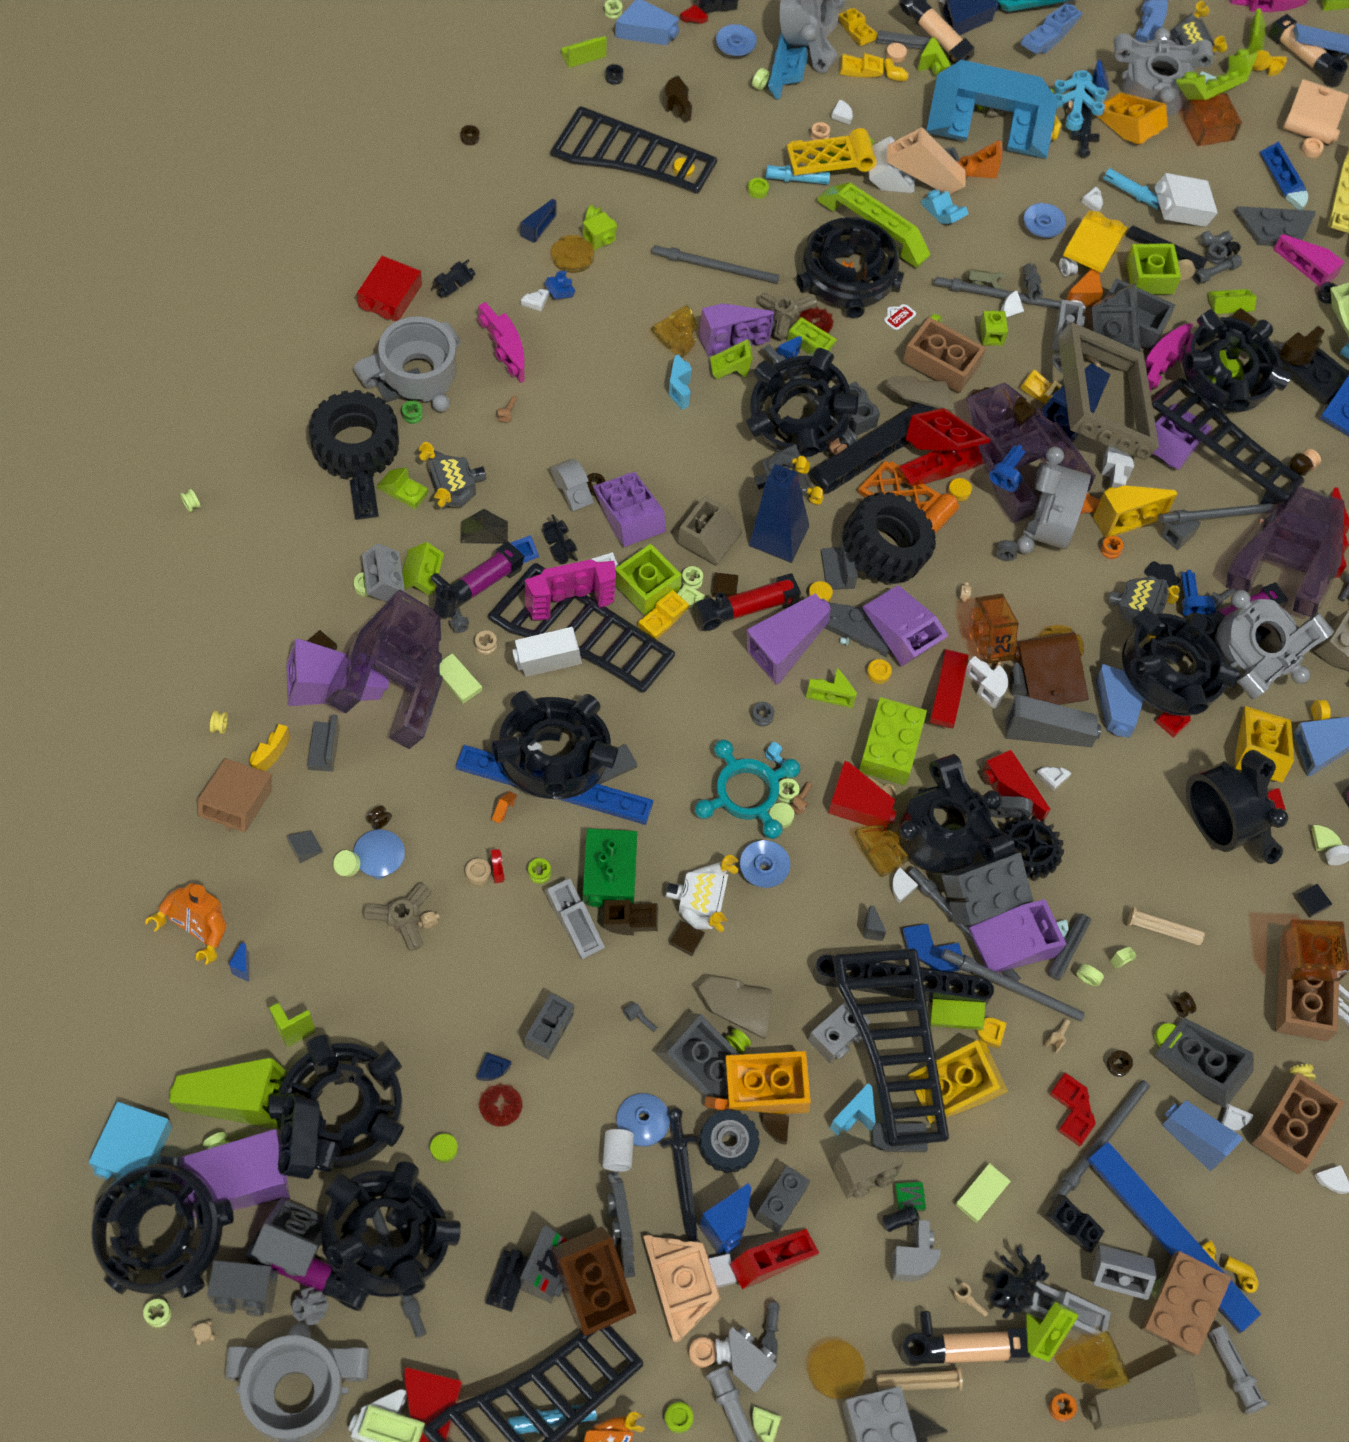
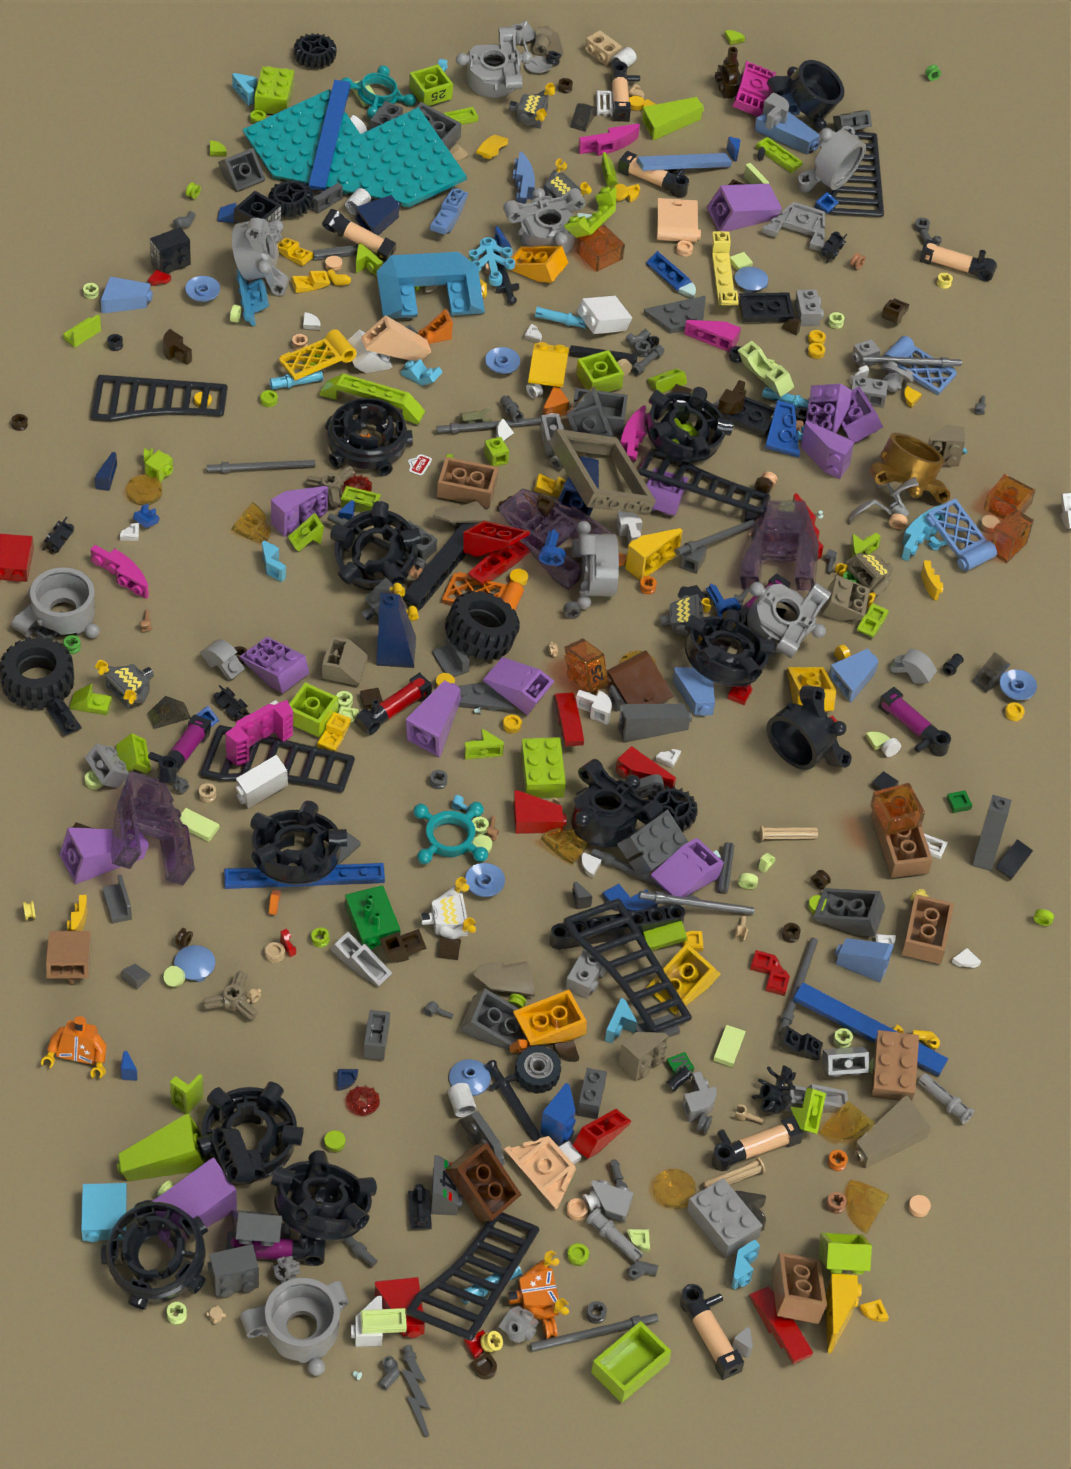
camera: 20 degrees left, 10 degrees down
(909, 1292) = (704, 1123): none -> dark grey bush
(1141, 1232) = (848, 1038): none -> yellowish green bush

